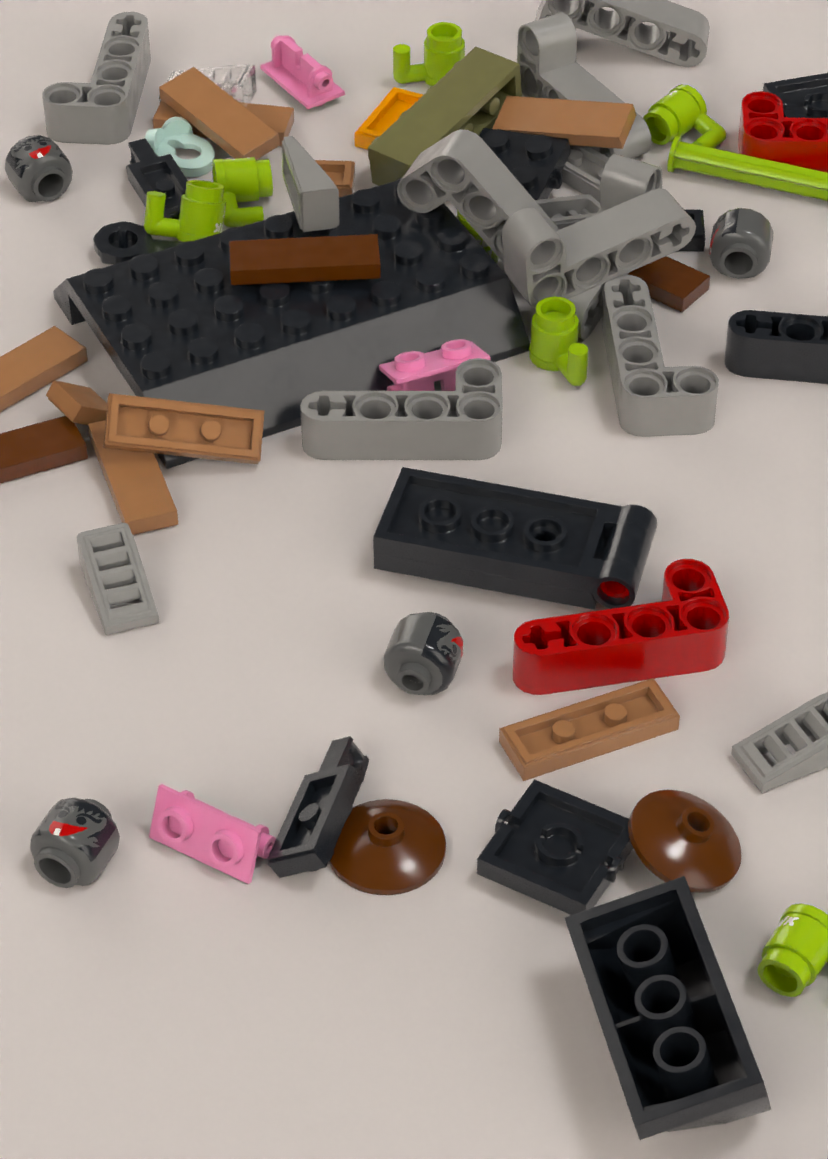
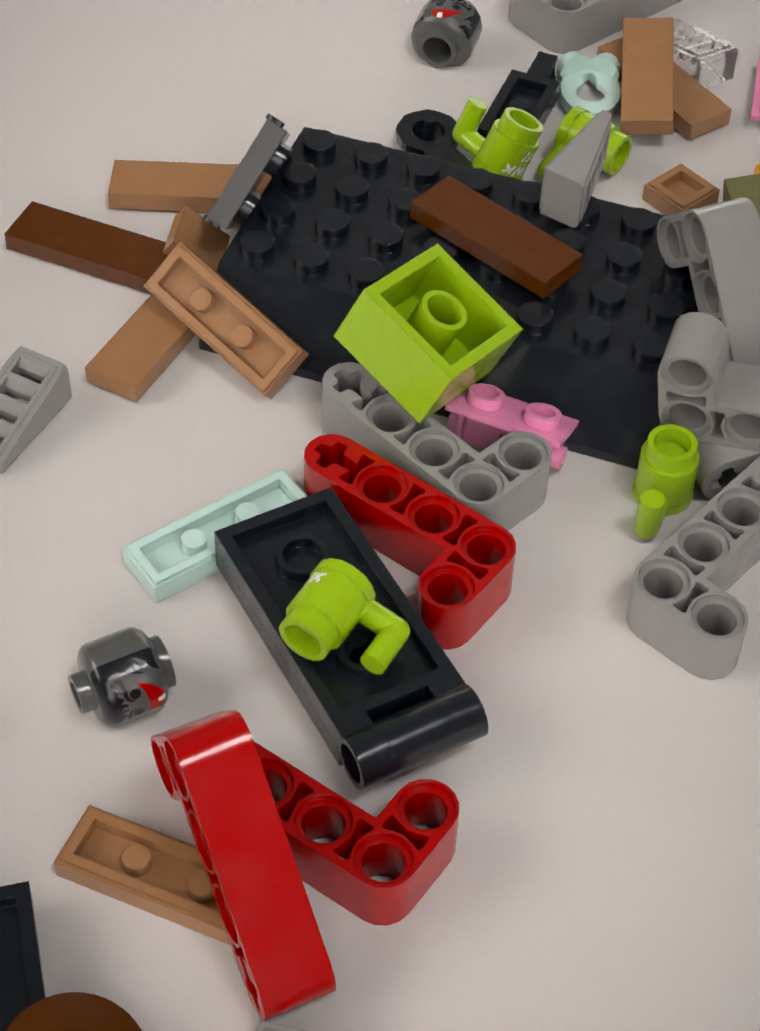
camera: 45 degrees right, 5 degrees up
(87, 326) = (264, 156): none -> plate
(347, 554) = (186, 548): none -> light aqua tile
(357, 336) = (427, 332): none -> lime brick
(500, 452) = (456, 551): none -> red beam
(518, 514) = (331, 607): none -> lime piece
(643, 652) = (247, 860): none -> red beam

